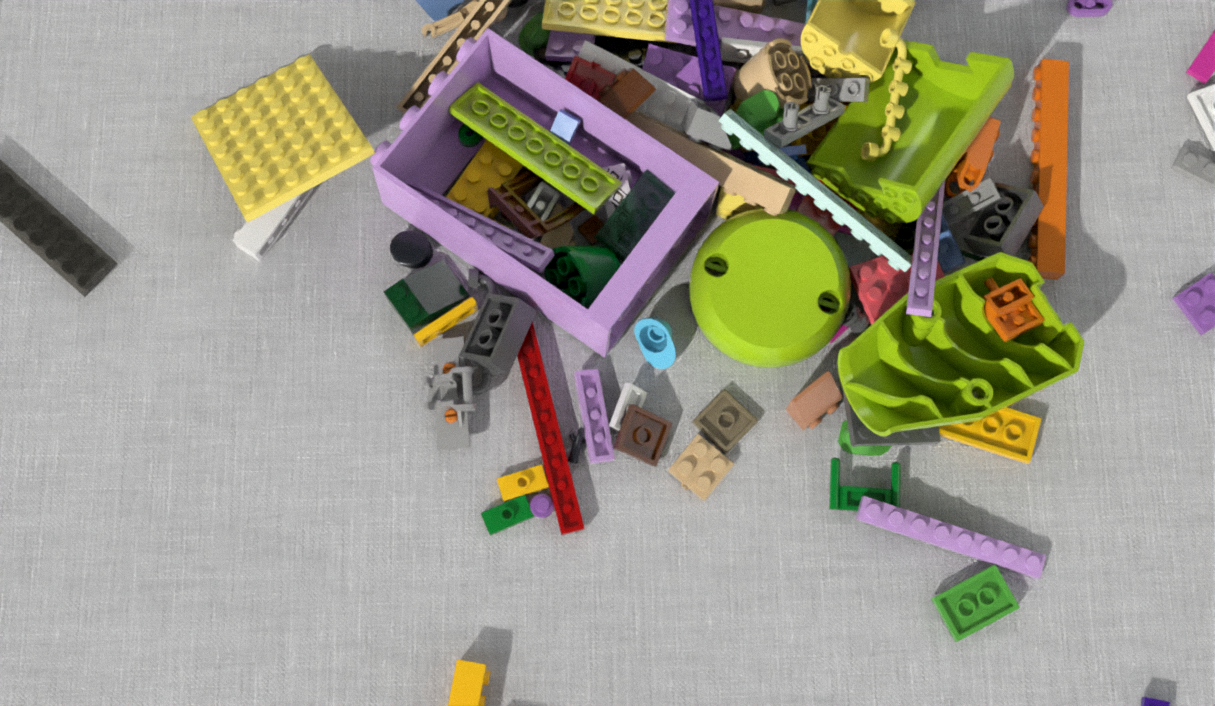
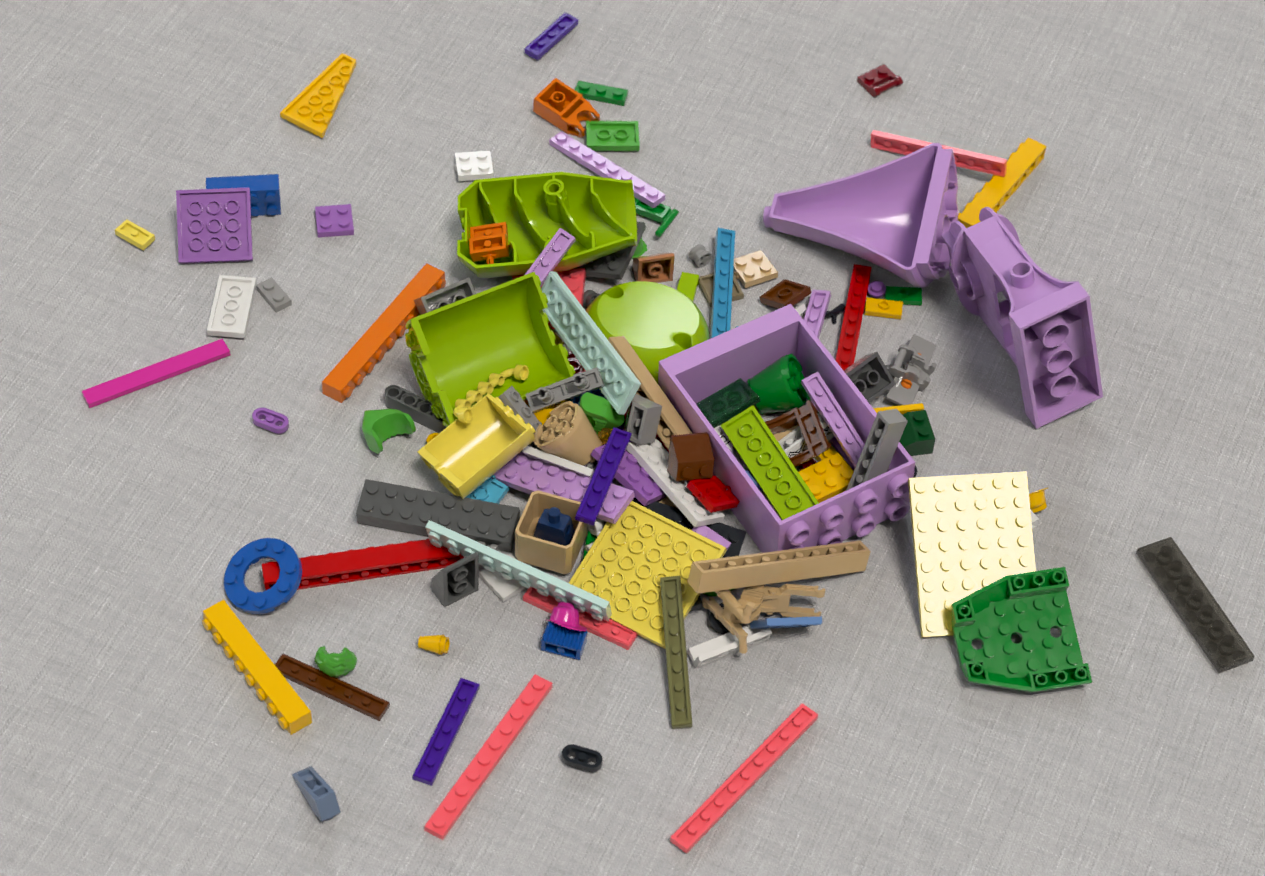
camera: 155 degrees left, 25 degrees down
(189, 57) = (1023, 606): none -> green wedge
(258, 272) = (1037, 500): none -> yellow piece
(266, 429) = (1041, 322): none -> lavender piece
(420, 167) = (879, 446): none -> light grey brick
(565, 574) = (881, 214): none -> lavender piece
(711, 391) = (722, 282): none -> dark azure plate
(760, 392) = (688, 284): none -> lime slope
(770, 452) = (700, 256): none -> light grey wheel
(978, 36) = (383, 424): none -> bright green animal
(1031, 678) = (602, 93): none -> green plate
(1049, 610) = (564, 108): none -> orange brick
(1107, 467) = (474, 165): none -> white plate

